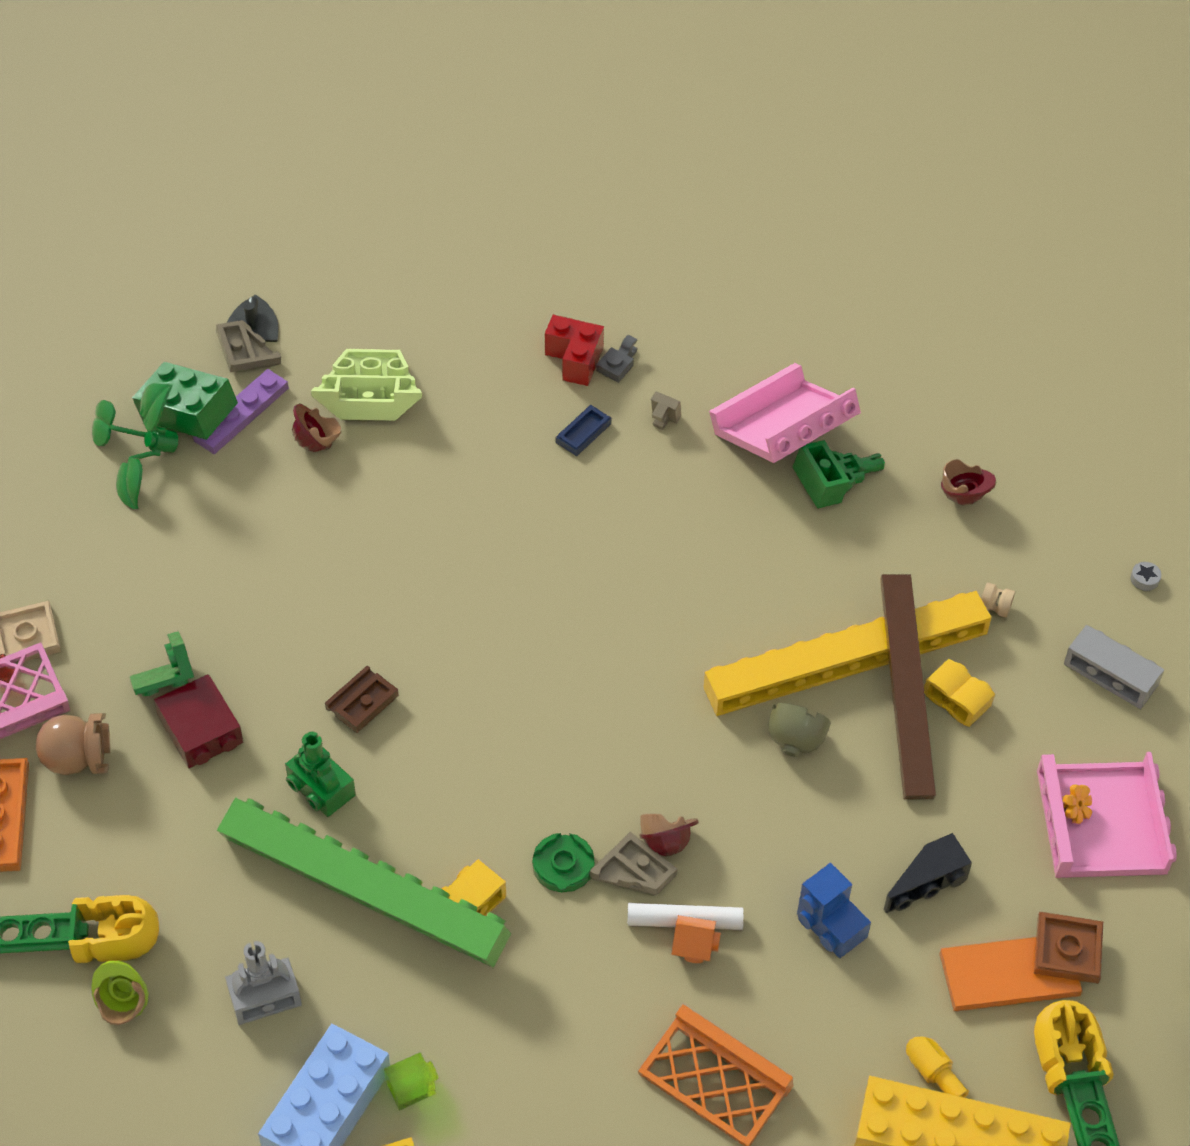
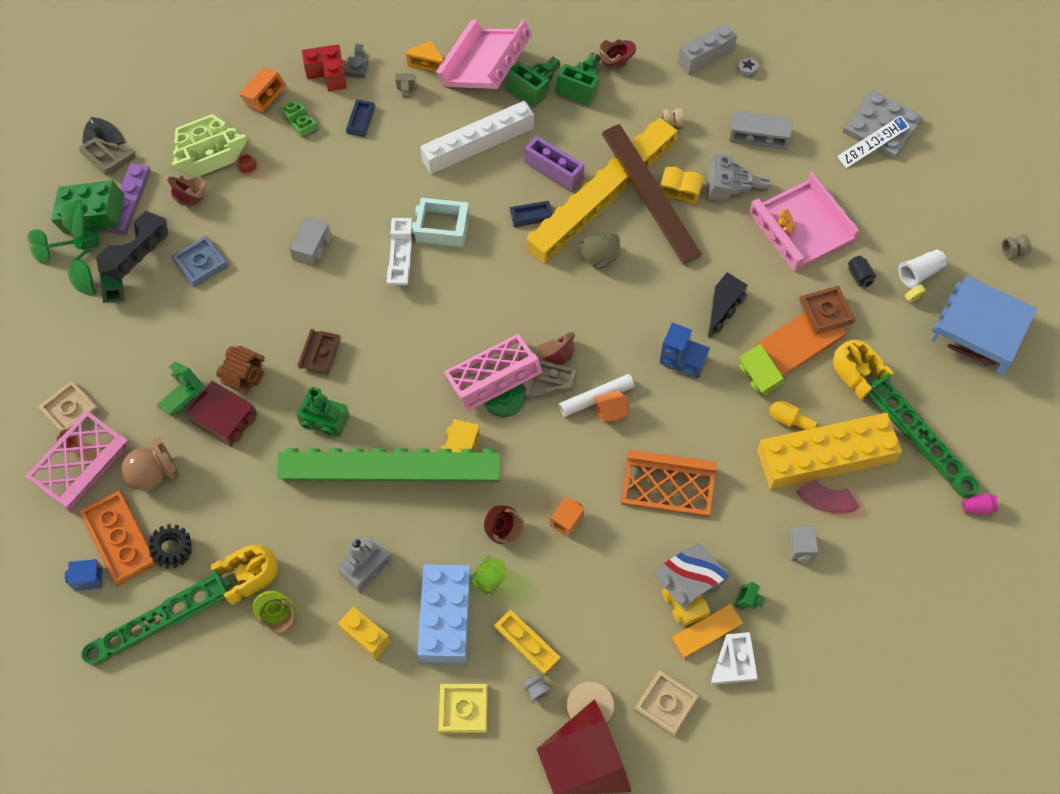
camera: 25 degrees left, 10 degrees up
(44, 838) = (168, 534): none -> black tyre
(158, 507) = (111, 289): none -> dark green brick
(181, 478) = (119, 259): none -> black arch
(212, 1076) = (364, 633): none -> yellow brick
(251, 676) = (241, 369): none -> dark orange brick
(282, 524) = (200, 261): none -> sand blue tile
(407, 428) = (246, 163): none -> clear red plate
(429, 557) = (310, 241): none -> light grey brick
(463, 1023) = (503, 524): none -> dark red piece
(478, 344) = (262, 89): none -> orange brick
(505, 398) = (298, 118): none -> bright green slope
(536, 619) = (400, 251): none -> white slope
(553, 1053) = (567, 516): none -> orange brick
(566, 836) = (498, 381): none -> bright pink fence
(616, 632) = (437, 236): none -> light aqua window
(707, 385) = (424, 57): none -> light orange slope
(718, 515) = (477, 137): none -> white brick
(733, 642) = (530, 213): none -> dark blue tile
(799, 591) = (554, 163): none -> medium lavender brick
(896, 499) = (579, 81): none -> green brick
(926, 986) = (761, 370): none -> lime brick
(1033, 714) = (730, 178): none -> light grey brick
(1098, 528) = (707, 49): none -> light grey brick
(1150, 918) = (861, 271): none -> black brick

